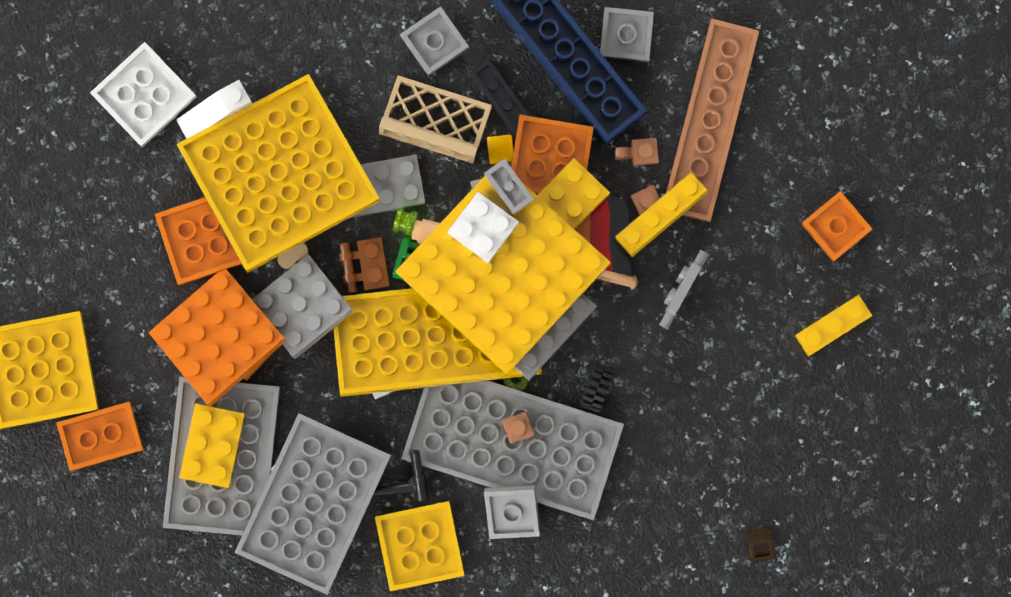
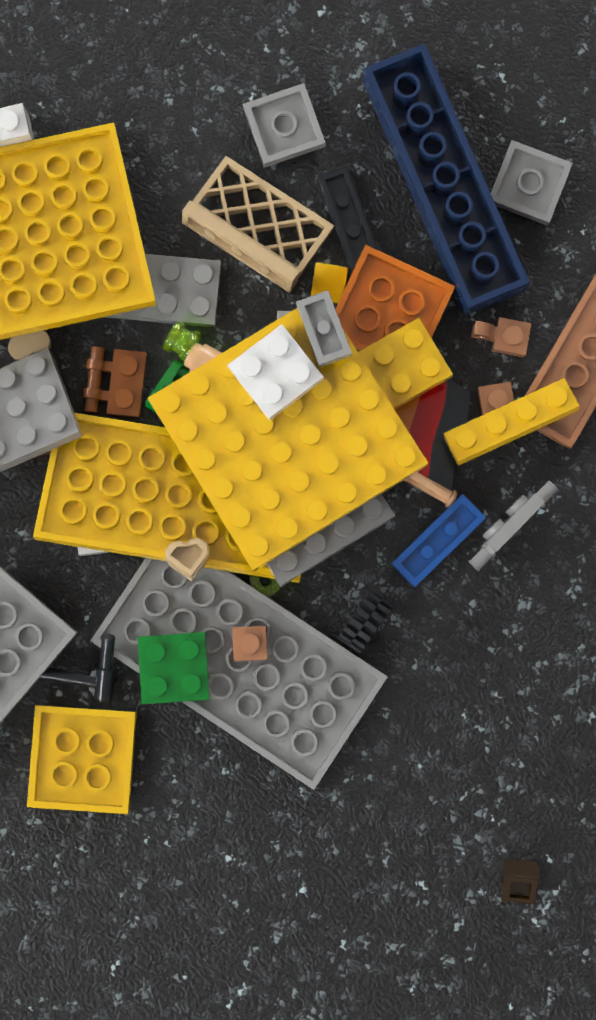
camera: 25 degrees right, 0 degrees up
(456, 377) = (187, 557): none -> tan tile
(467, 461) = (173, 668): none -> green plate
(512, 512) = (212, 750): light grey plate -> none
(633, 315) = (438, 540): none -> blue plate

